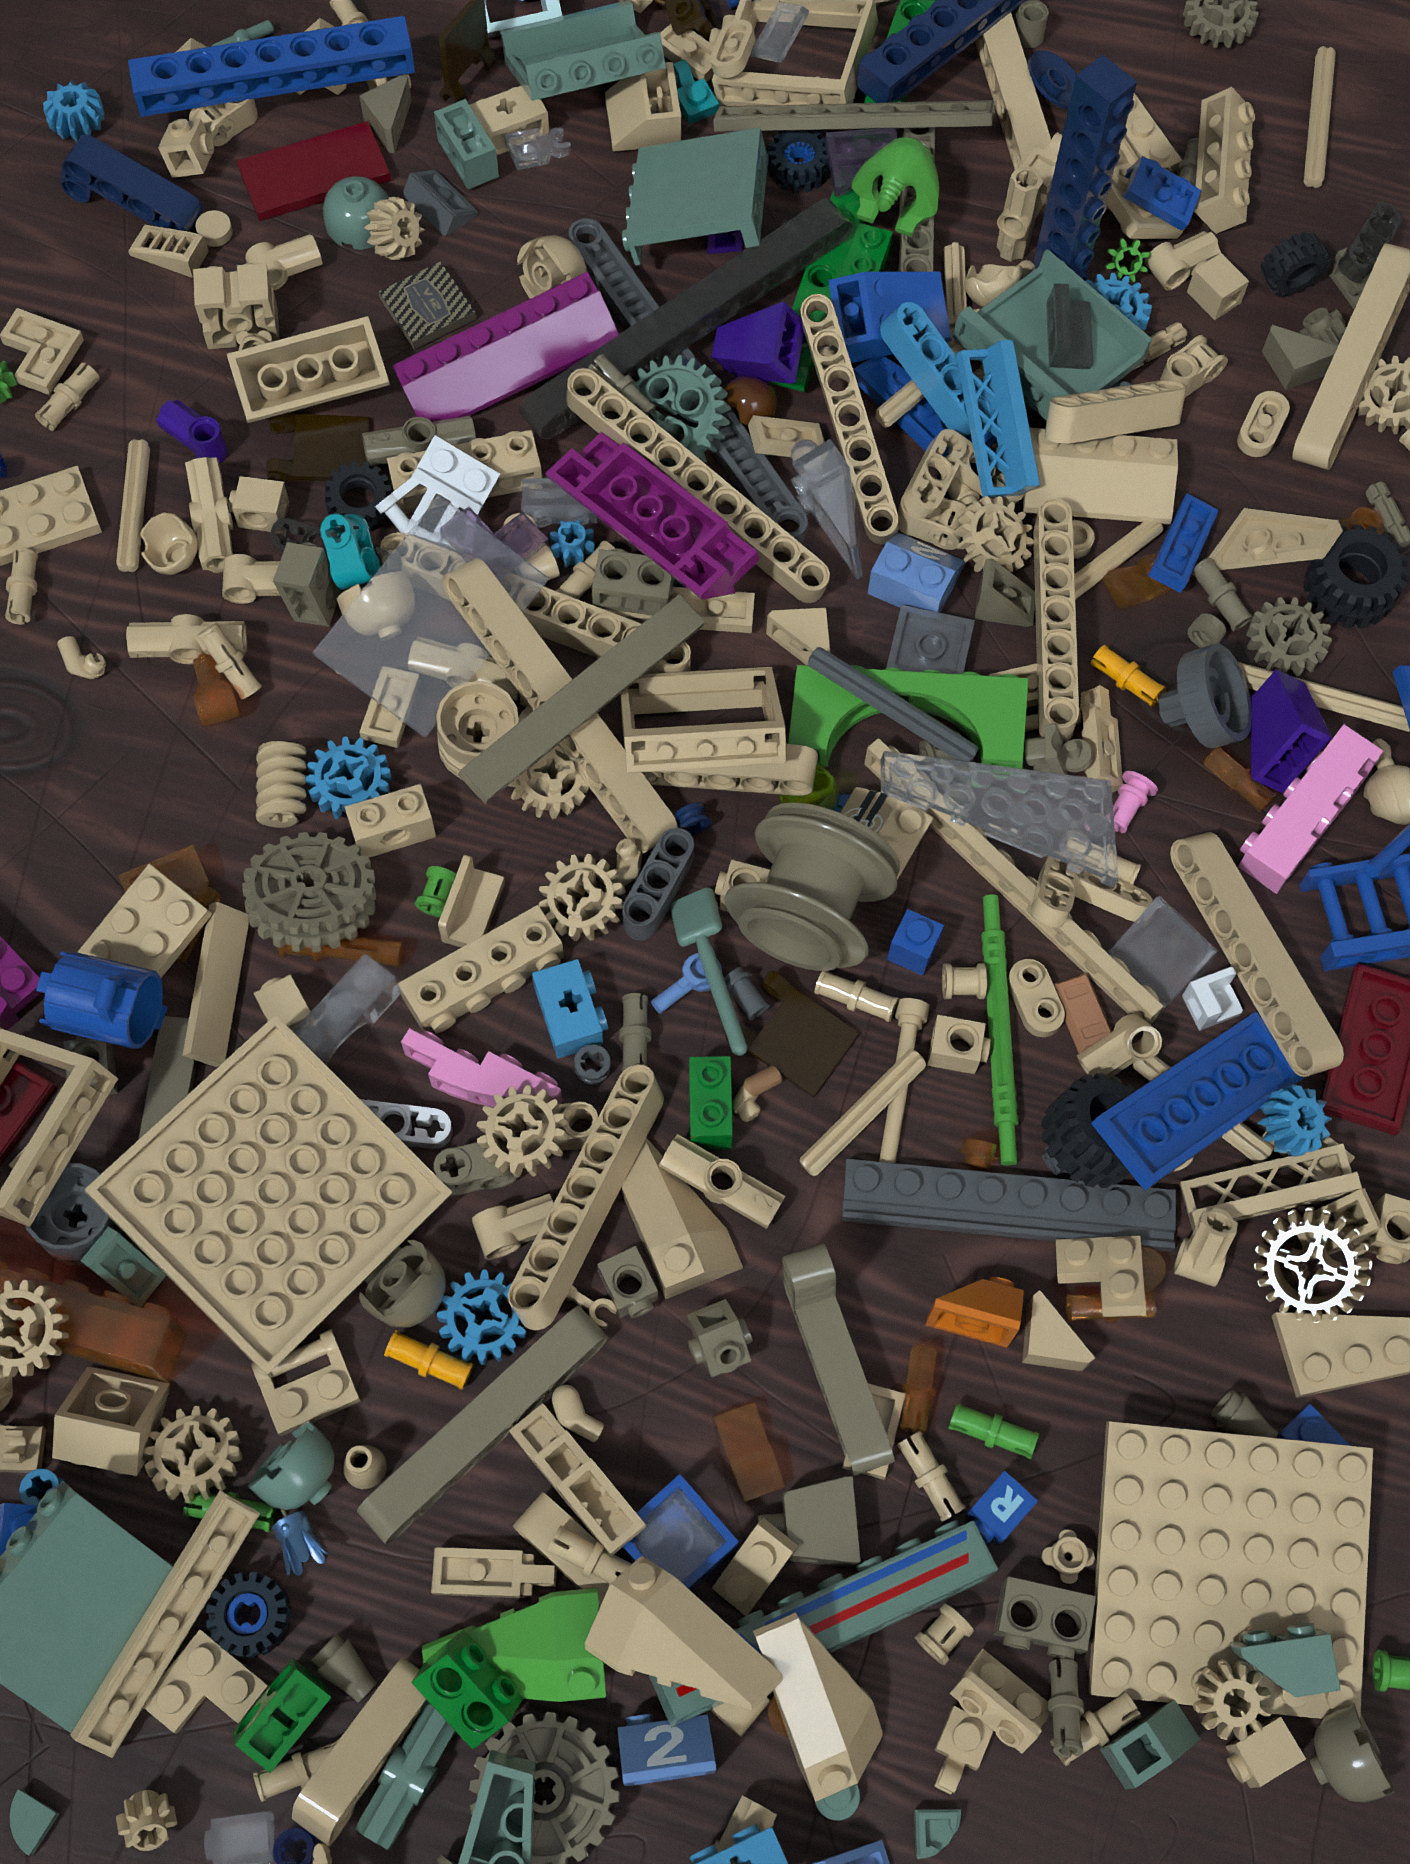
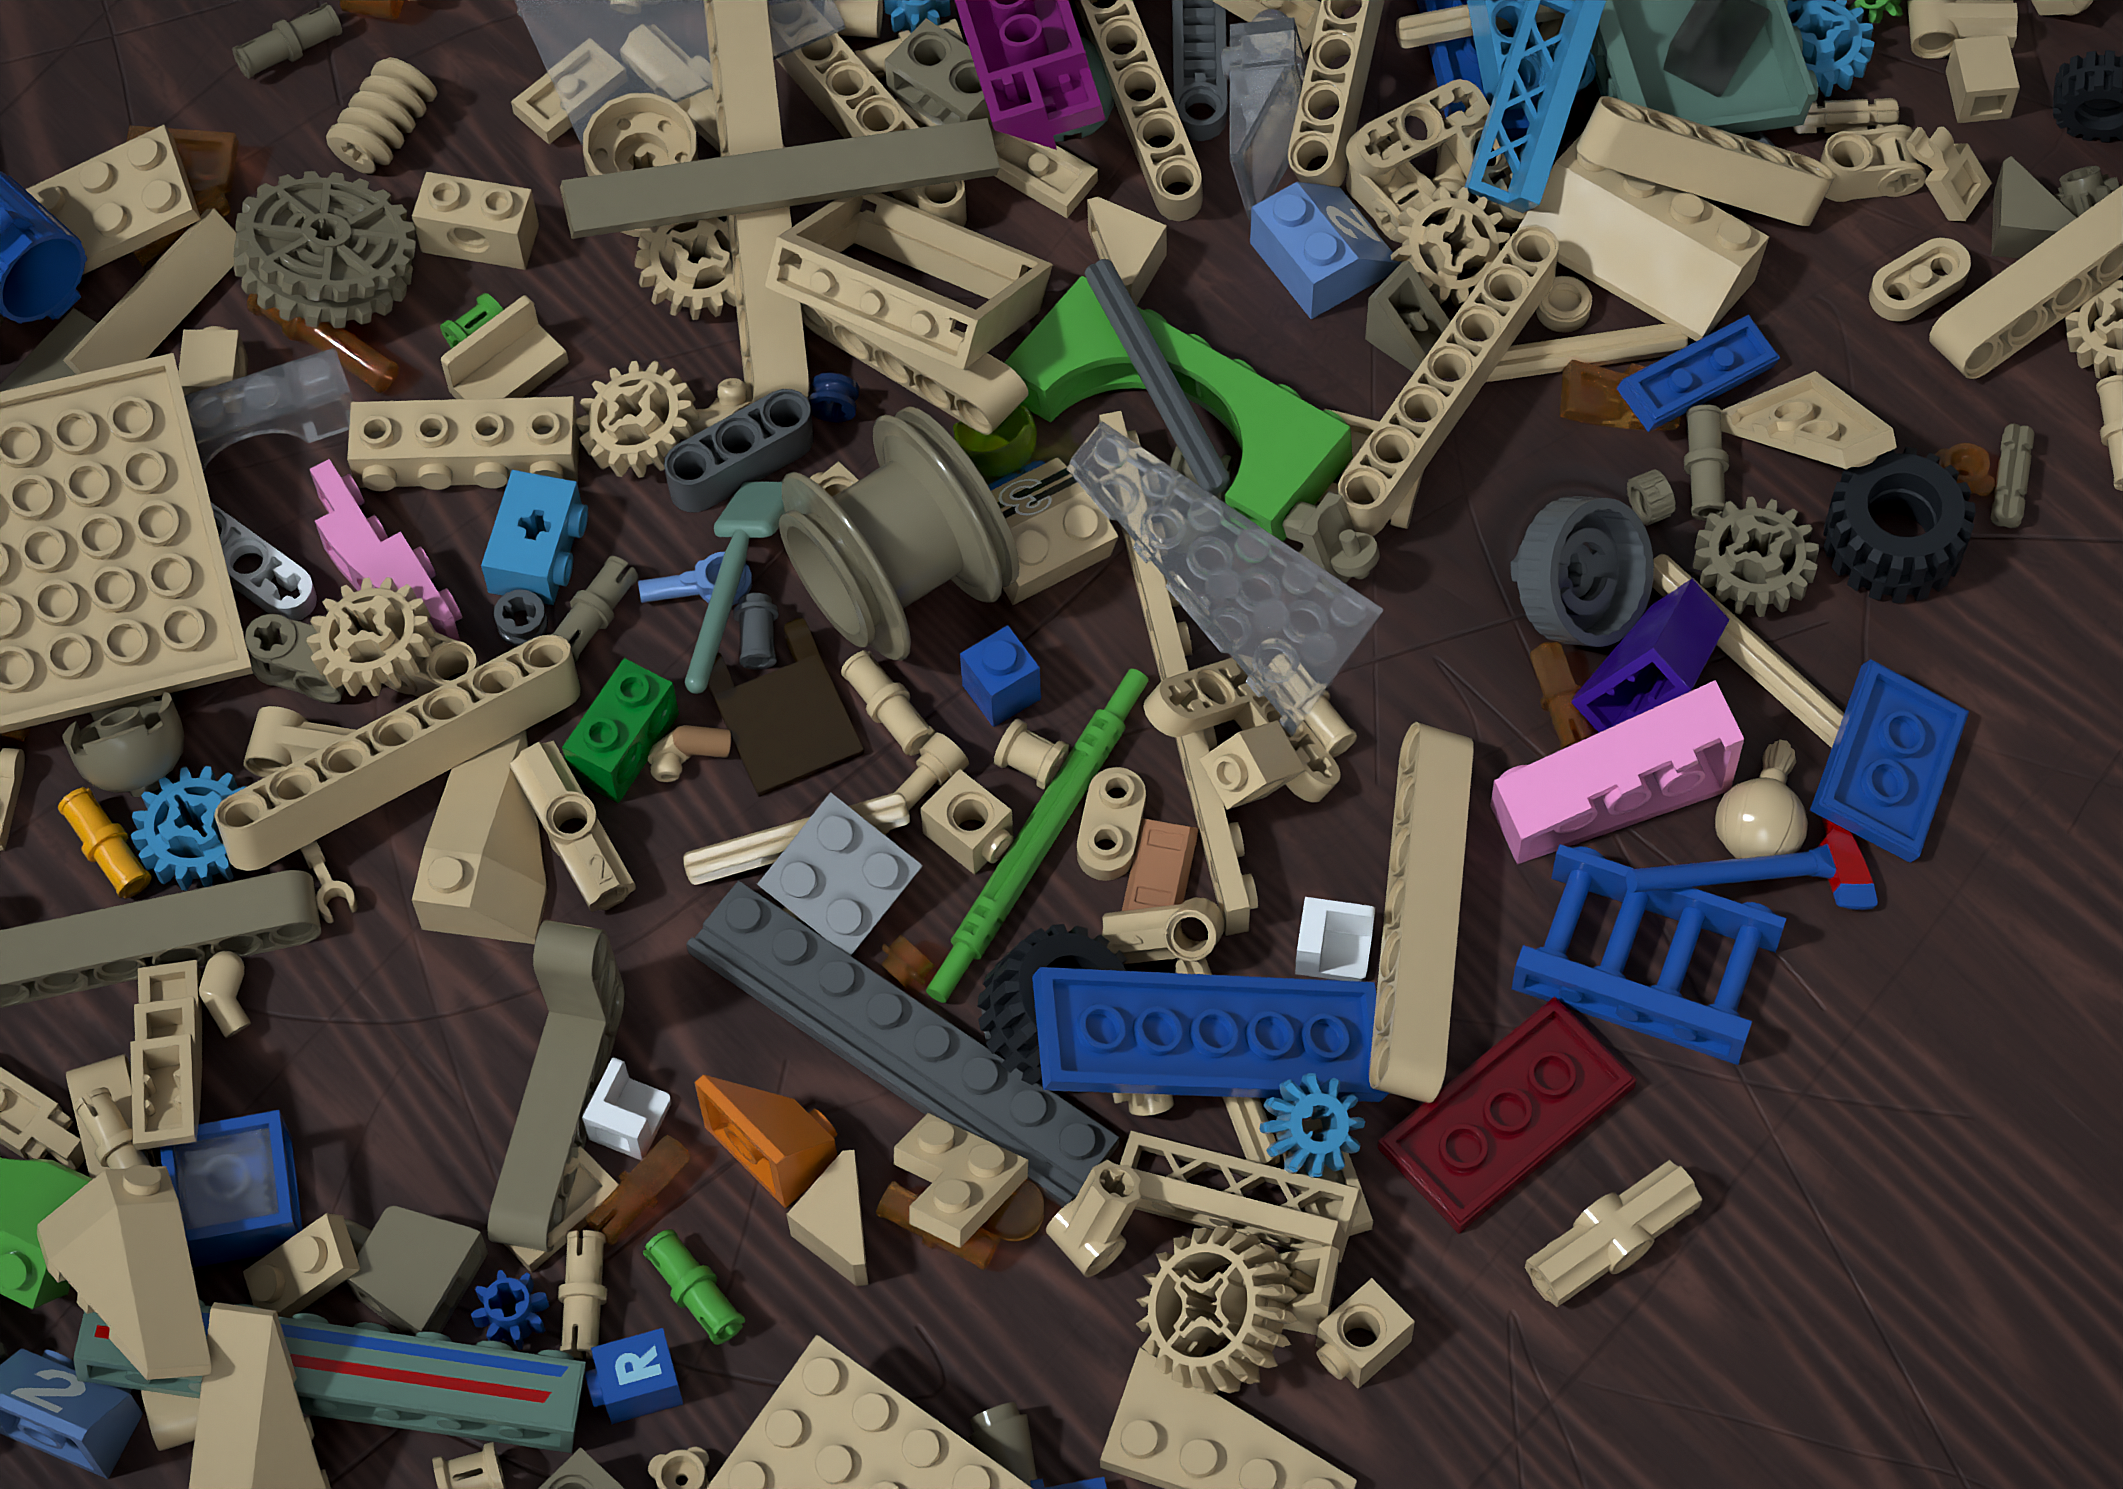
camera: 35 degrees right, 5 degrees down
(181, 765) = (287, 40): none -> dark tan pin
(352, 762) = (465, 141): dark azure gear -> none
(623, 1266) = (381, 859): dark tan brick -> none
(719, 1338) = (440, 997): dark tan brick -> none
(748, 1451) = (394, 1147): clear orange slope -> none
(878, 1344) = (625, 1112): none -> white panel
(893, 1501) = (502, 1293): none -> blue gear
(908, 1121) = (840, 874): none -> light grey plate
(930, 641) = (1279, 335): flat silver plate -> none
(1102, 735) = (1414, 559): tan hinge -> none
(1106, 917) = (1252, 764): none -> tan brick
(1128, 675) = (1505, 496): light orange pin -> none
(1130, 798) = (1398, 650): bright pink pin -> none
(1164, 951) = (1302, 848): clear slope -> none
(1242, 350) = (1956, 174): none -> tan plate

